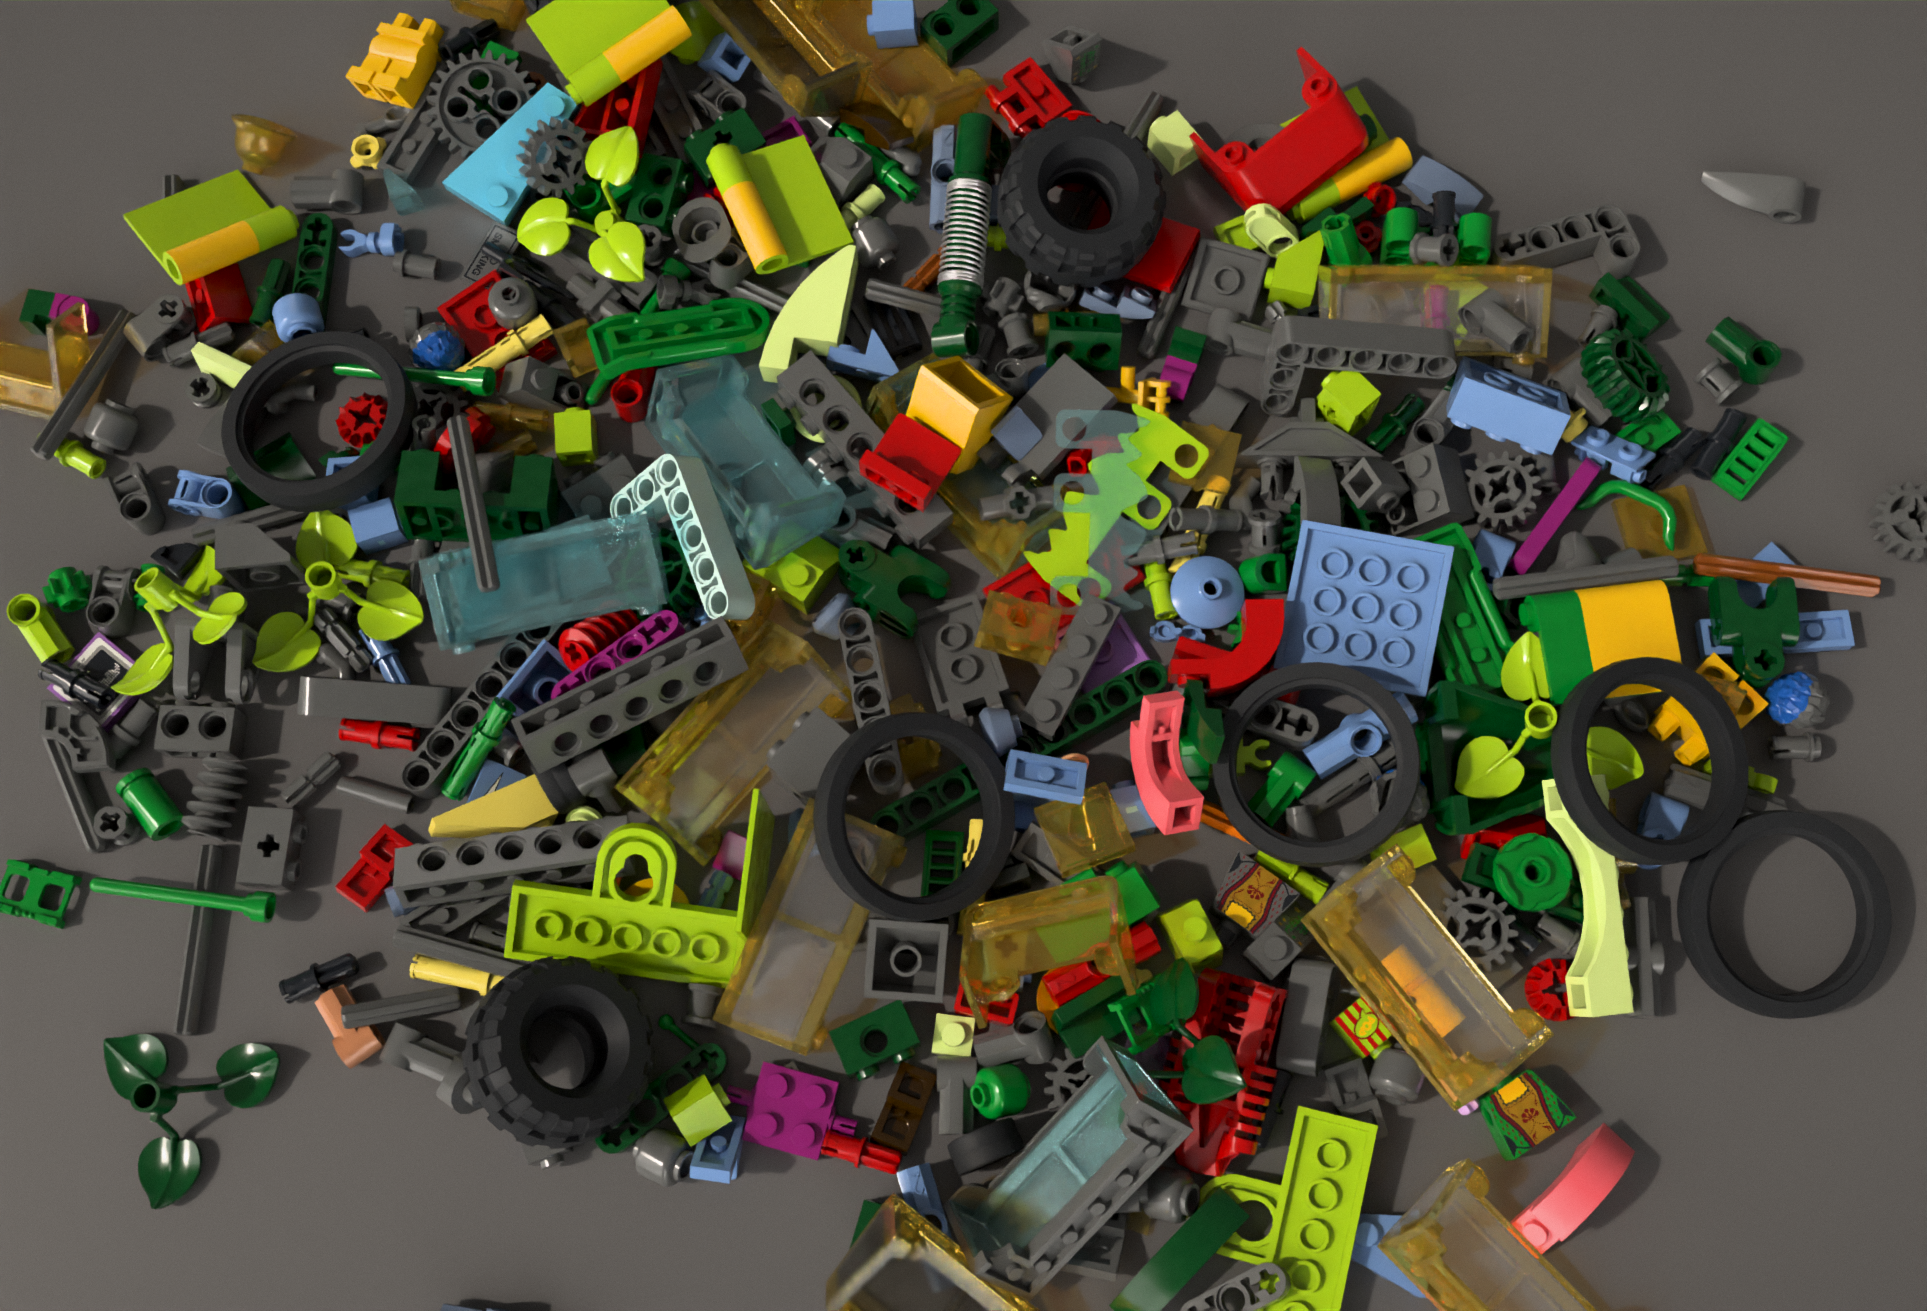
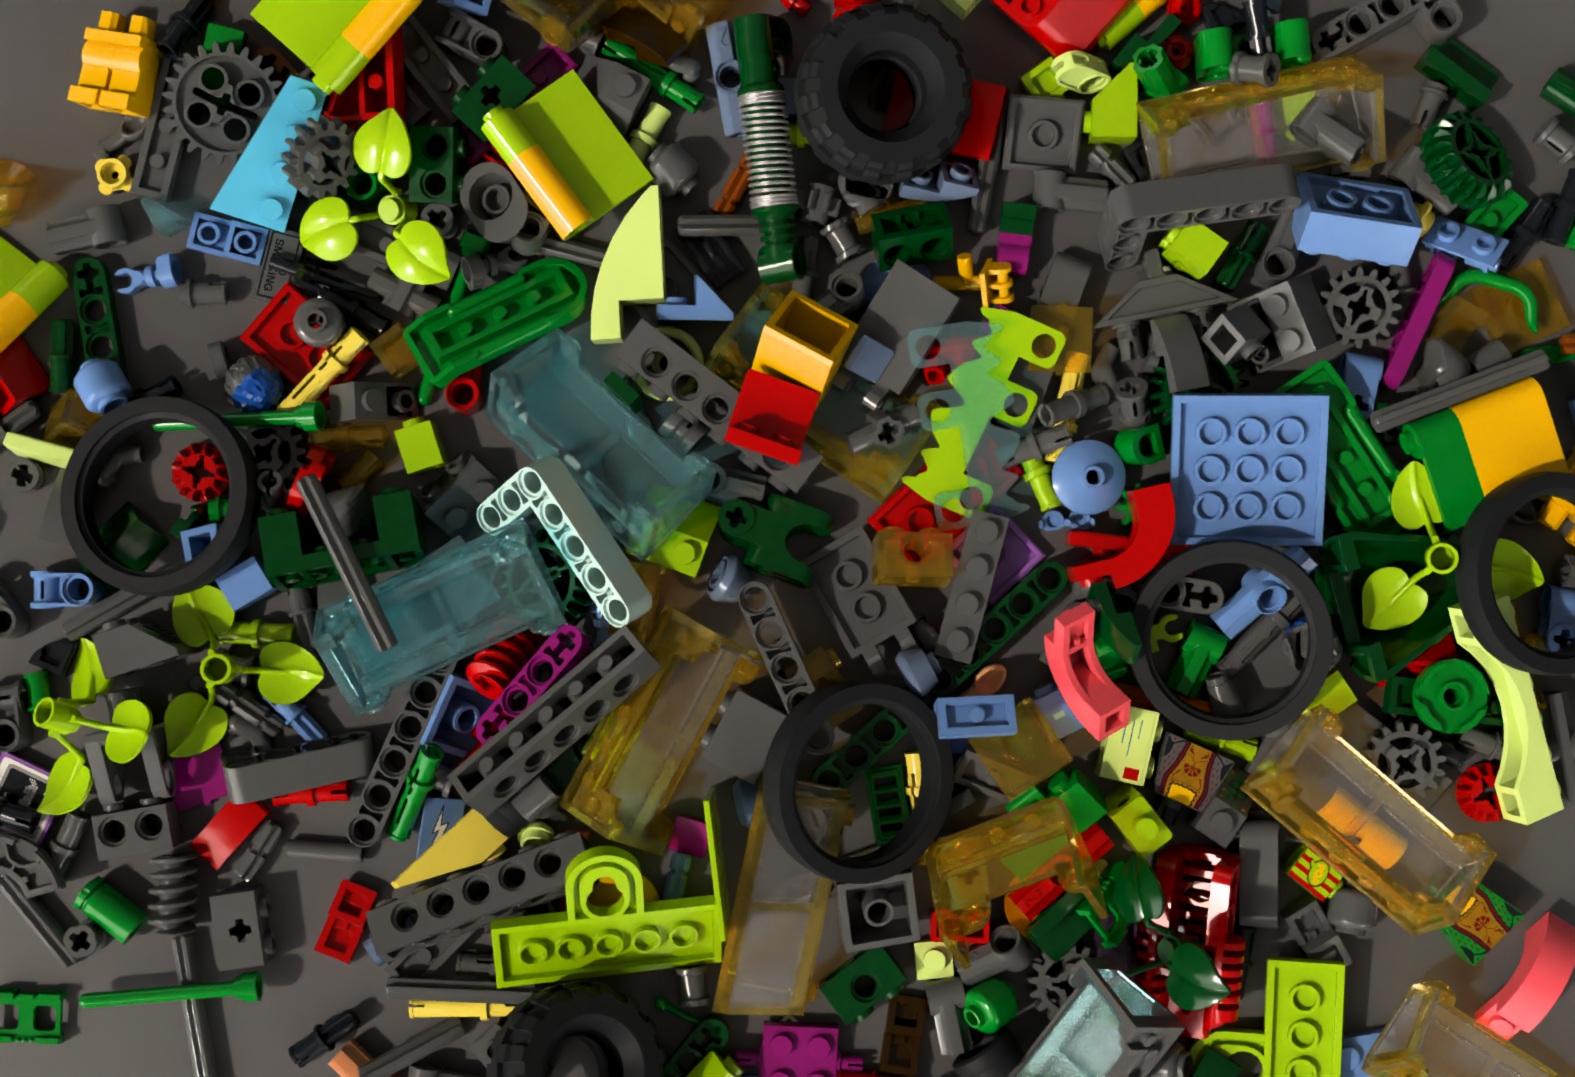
camera: 10 degrees left, 15 degrees up
(275, 699) = (199, 779): none -> magenta piece
(293, 748) = (228, 831): none -> red slope
(451, 225) = (227, 238): none -> medium blue slope
(1195, 860) = (1127, 752): none -> yellowish green brick
(1598, 523) = (1457, 321): none -> clear yellow panel

